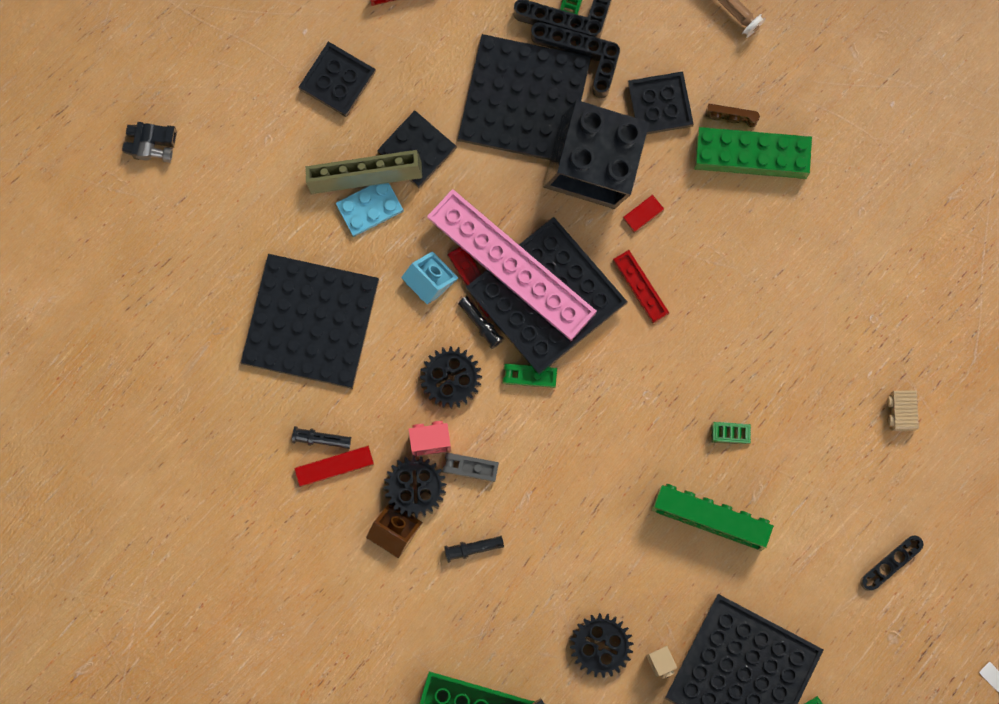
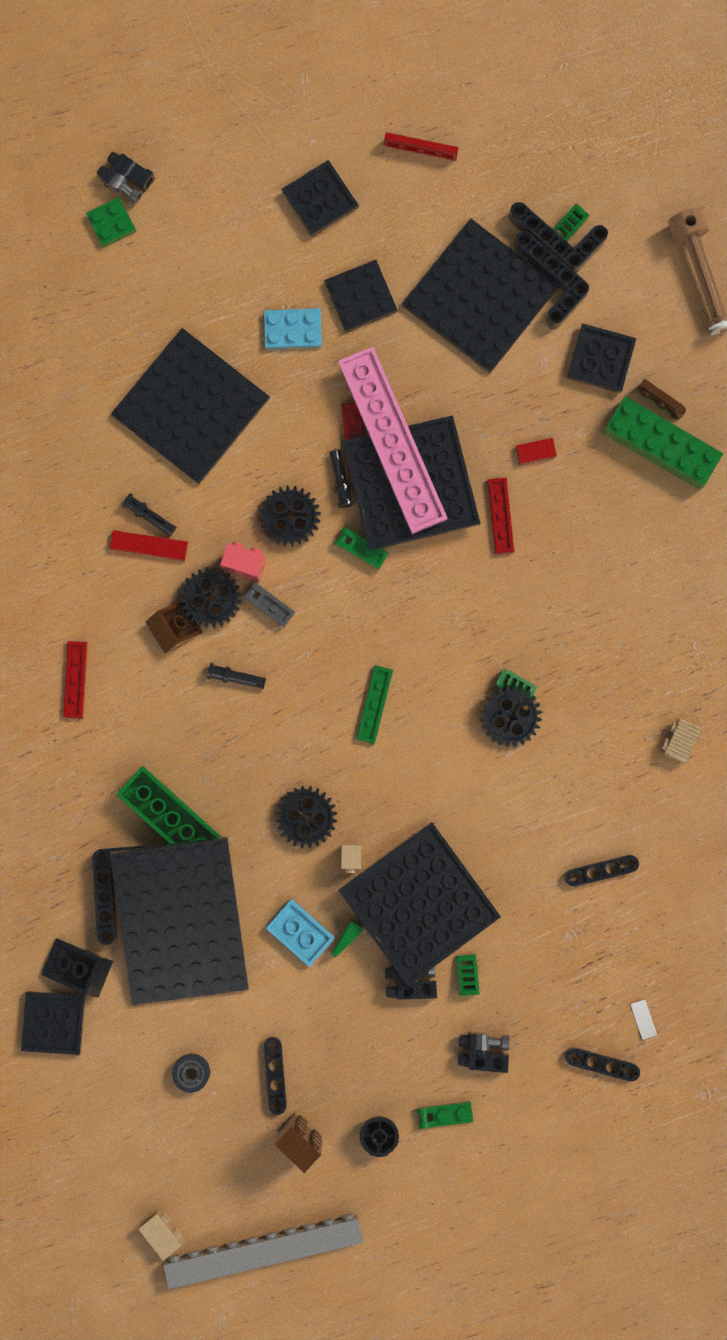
camera: 25 degrees right, 5 degrees up
(156, 189) = (111, 222): none -> green plate
(326, 622) = (75, 679): none -> red tile
(363, 172) = (301, 293): olive brick -> none
(429, 277) = (314, 417): medium azure slope -> none
(596, 154) = (517, 376): black piece -> none
(612, 512) = (374, 704): none -> green tile
(712, 517) = (460, 752): green brick -> none
(723, 463) = (526, 721): none -> black gear

